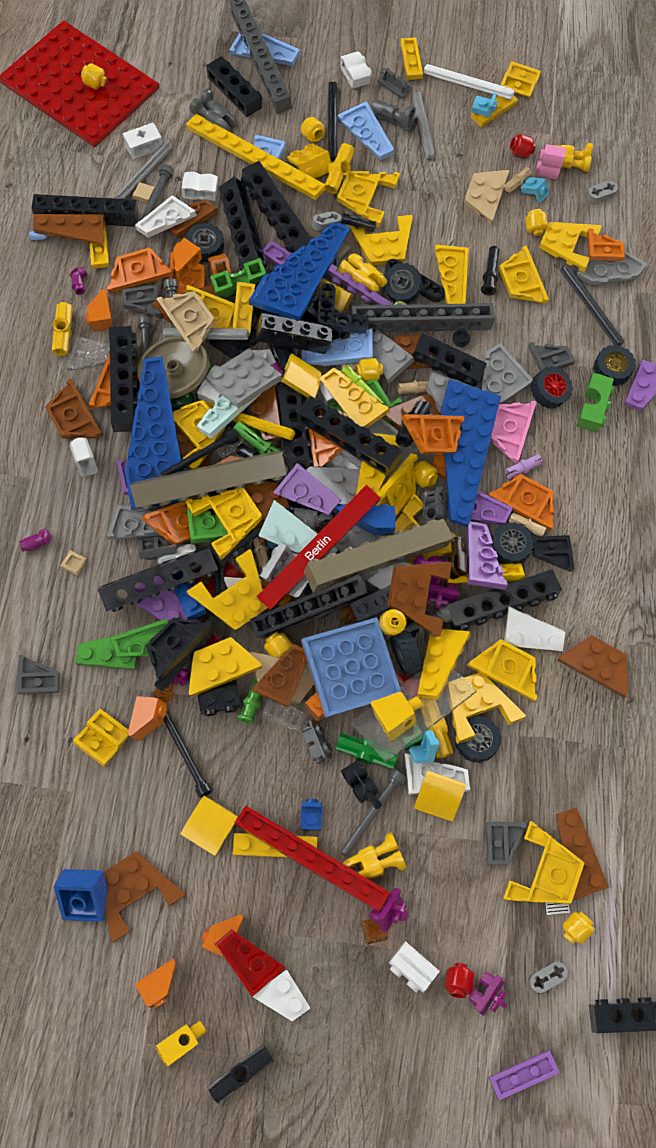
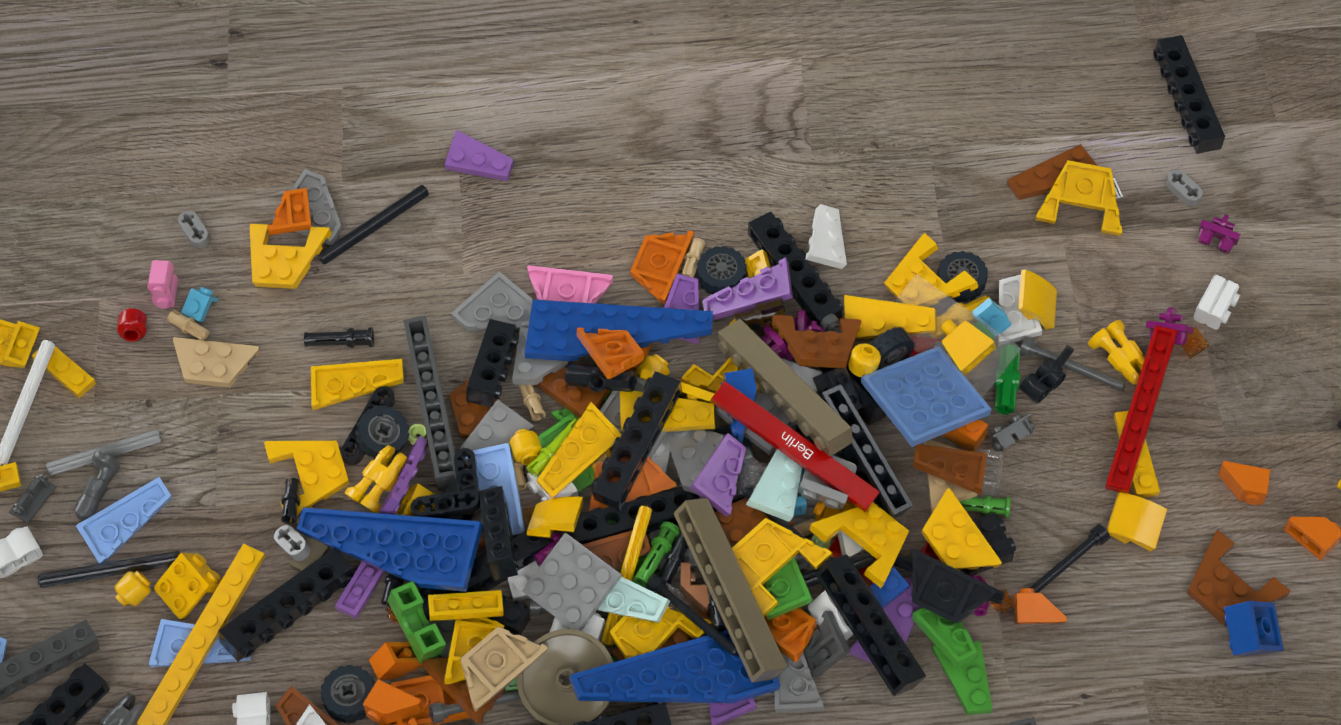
camera: 95 degrees left, 10 degrees down
(101, 737) = (1072, 658): yellow slope -> none
(214, 333) = (510, 623): light grey axle -> none
(241, 222) = (305, 642): black brick -> none
(248, 962) = (1266, 448): red wing -> none
(277, 644) = (915, 486): yellow head -> none
(283, 997) = (1284, 418): white wing -> none
(311, 815) = (1093, 423): blue bracket -> none
(339, 168) = (202, 539): yellow piece -> none
(359, 190) = (234, 513): yellow wing -> none
(435, 504) = (689, 352): dark grey piece -> none
(459, 981) = (1215, 260): red head -> none
(461, 338) = (448, 360): black plate -> none
(484, 106) = (71, 373): medium azure bracket -> none
(502, 841) = (1064, 240): dark grey wing -> none
(508, 667) = (872, 257): yellow wing -> none
(522, 278) = (345, 302): yellow wing -> none
(523, 466) = (617, 270): lavender pin -> none
(523, 1075) = (1281, 197): medium lavender plate -> none
(536, 222) = (257, 294): yellow head -> none
(551, 355) = (459, 259): dark grey wing -> none
(551, 387) = (506, 250): black wheel -> none
(554, 550) = (719, 226): black wing -> none
(578, 928) = (1129, 164): yellow head -> none
(583, 157) = (136, 273): yellow piece -> none
(592, 415) = (498, 201): bright green arch -> none
(599, 663) = (842, 175): dark orange wing -> none
(622, 362) = (458, 192): black wheel -> none

